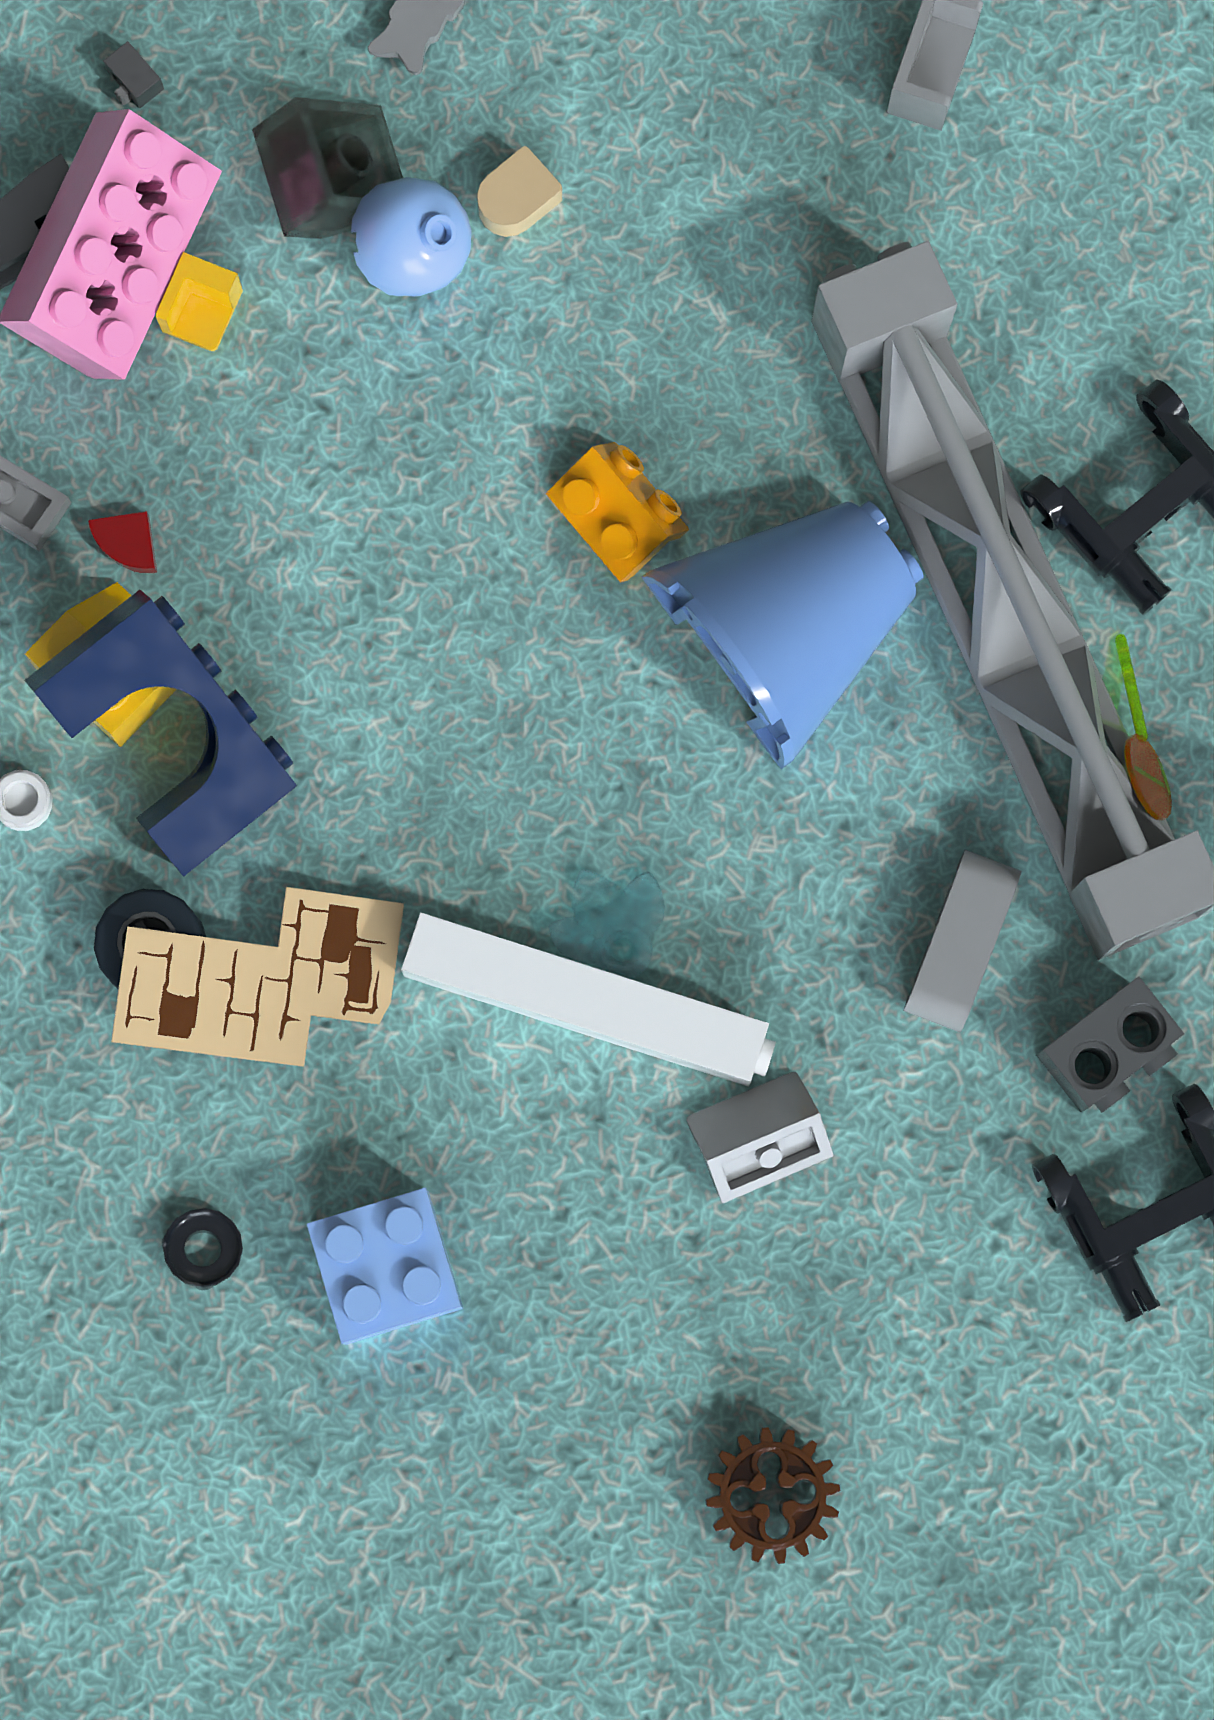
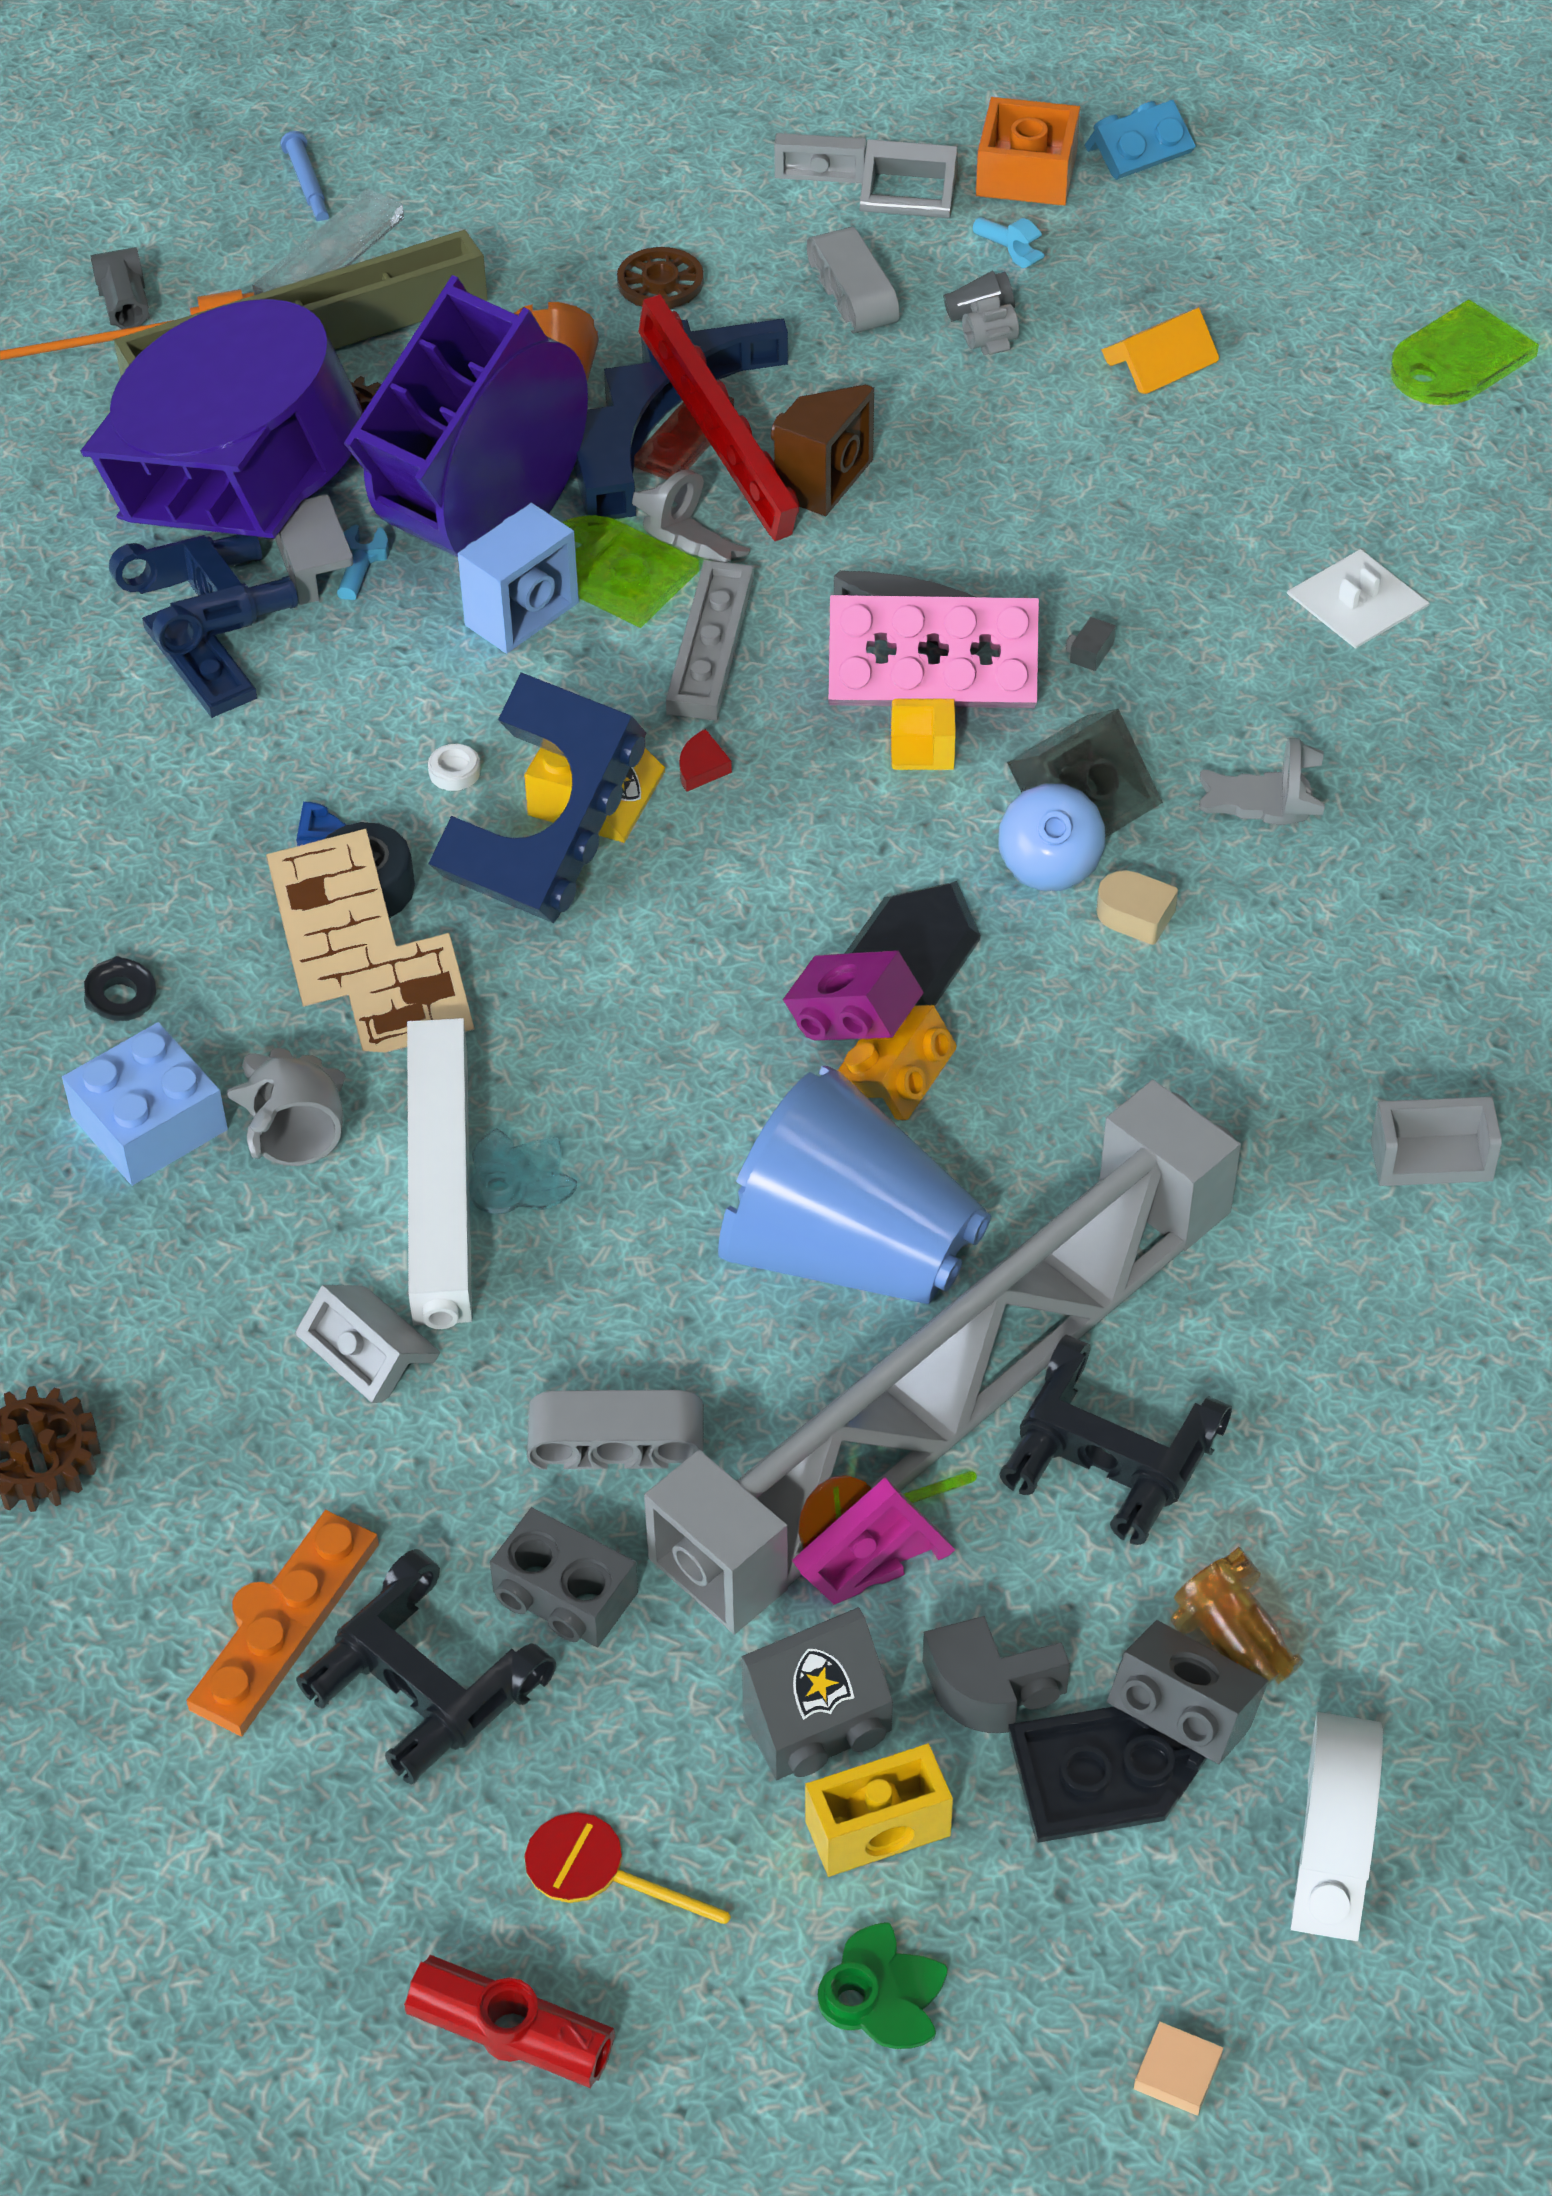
camera: 70 degrees right, 30 degrees down
(54, 968) = (316, 823): none -> blue tile
(445, 1117) = (292, 1107): none -> light grey piece
(468, 429) = (930, 932): none -> black tile
(519, 532) = (853, 996): none -> magenta brick
(1046, 1315) = (280, 1622): none -> orange hinge
(1181, 744) = (869, 1544): none -> dark pink wing

